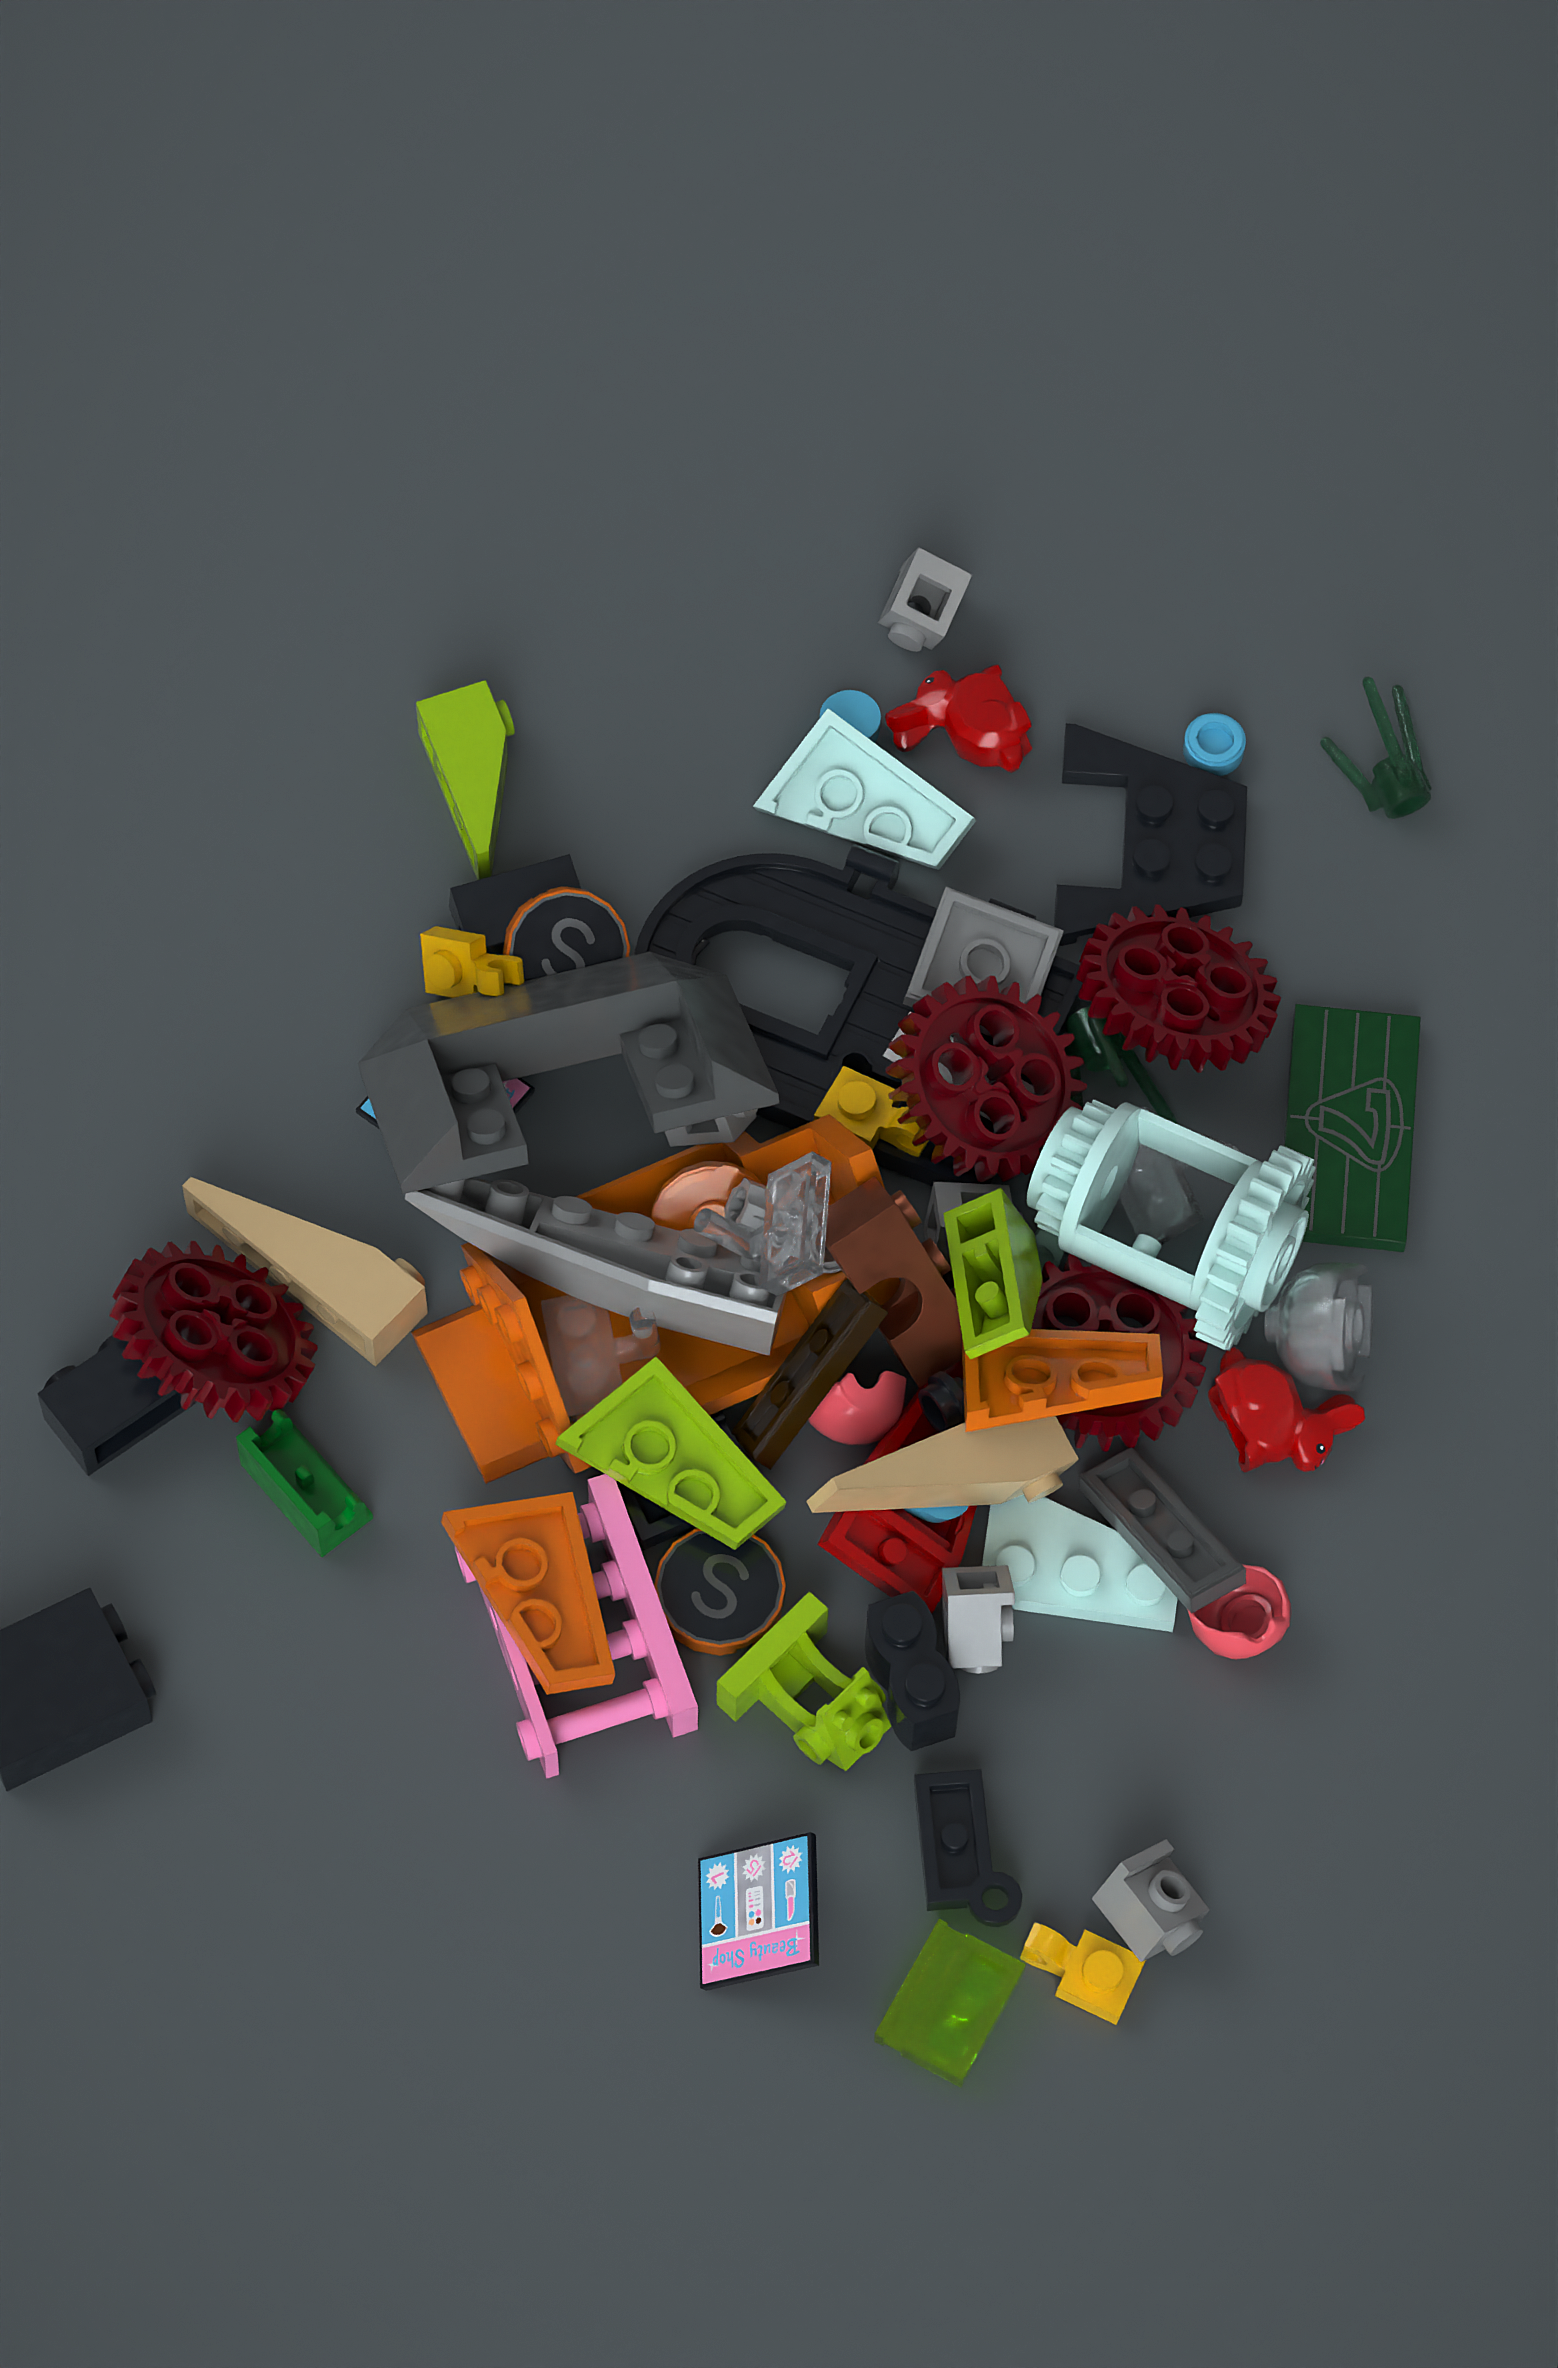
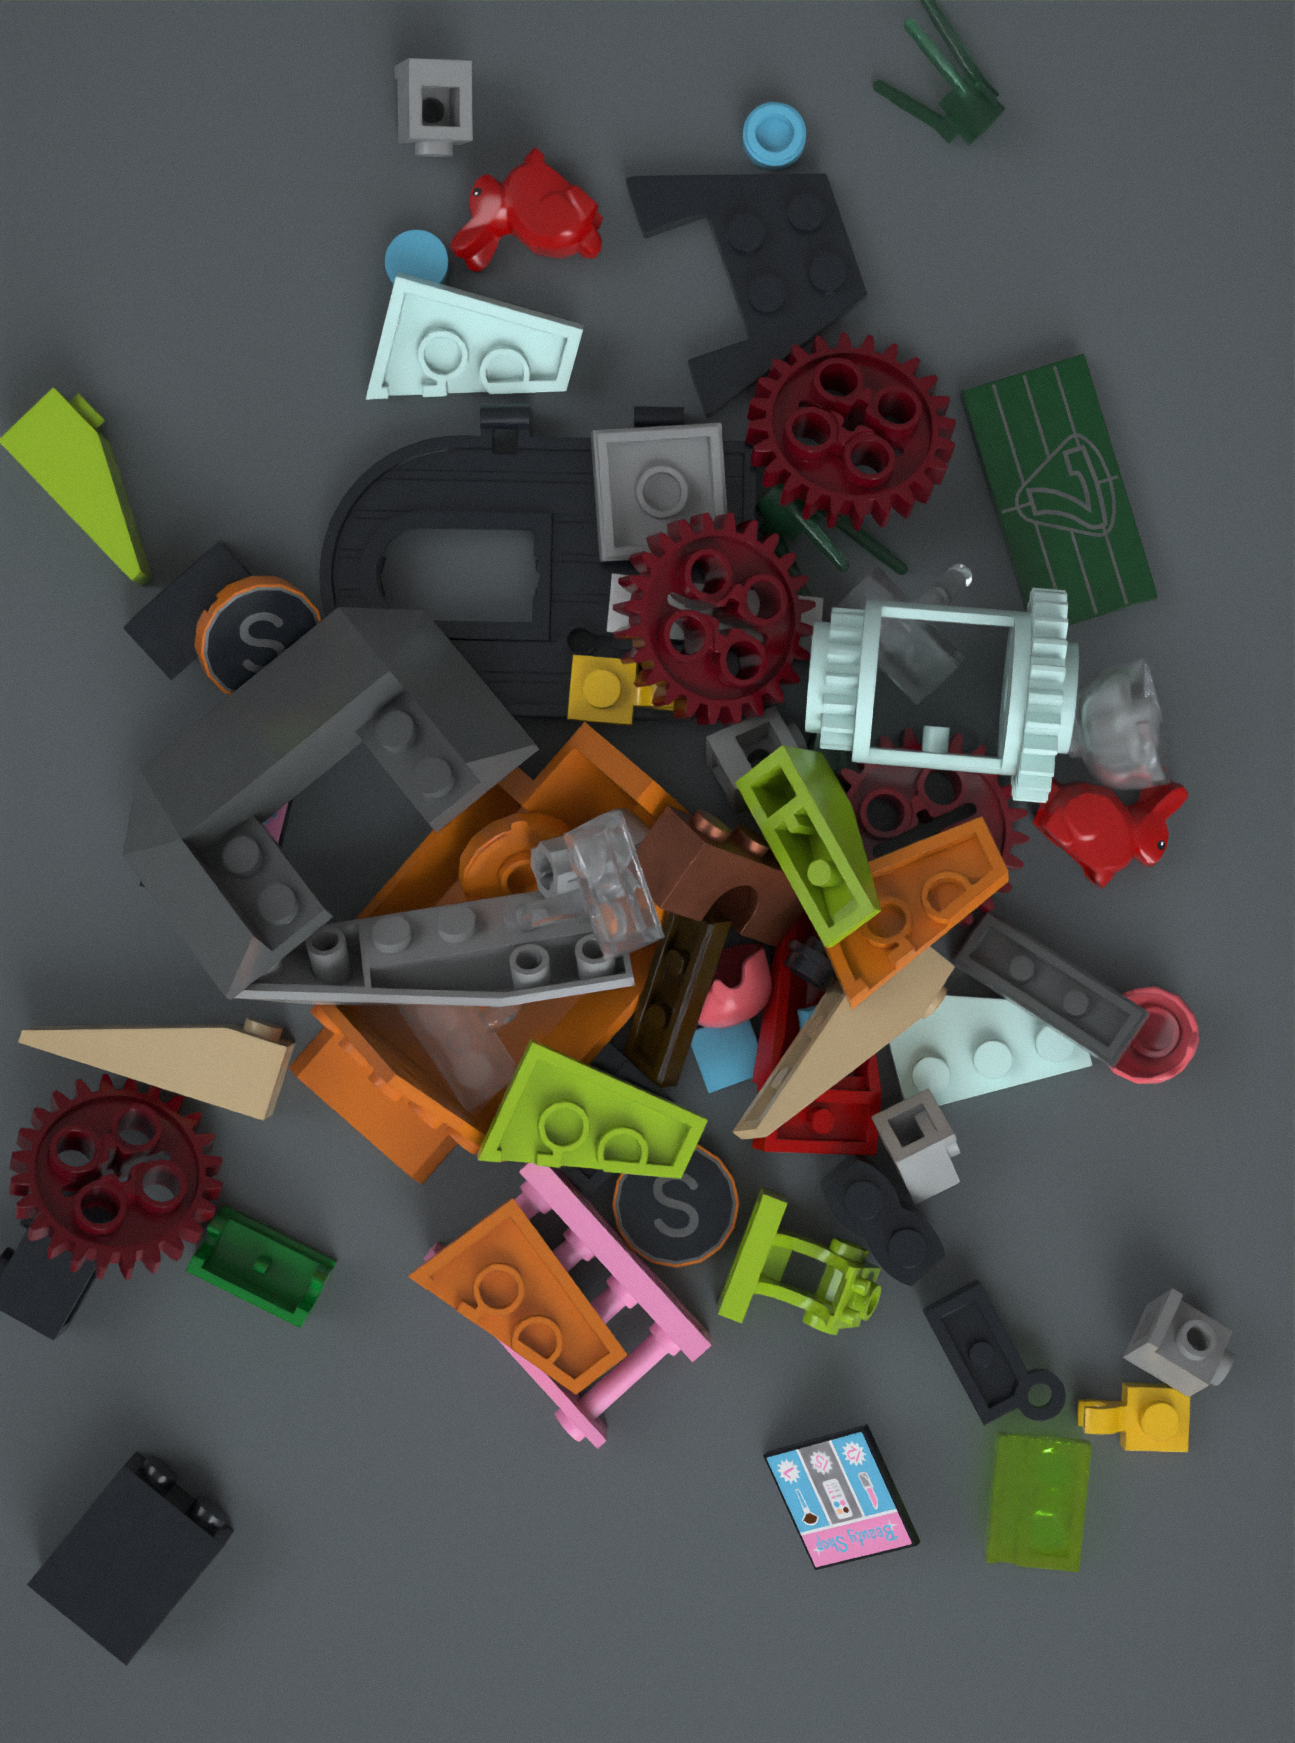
camera: 20 degrees left, 25 degrees up
(459, 964) = (168, 699): yellow plate -> none
(821, 1462) = (725, 1054): none -> medium azure tile

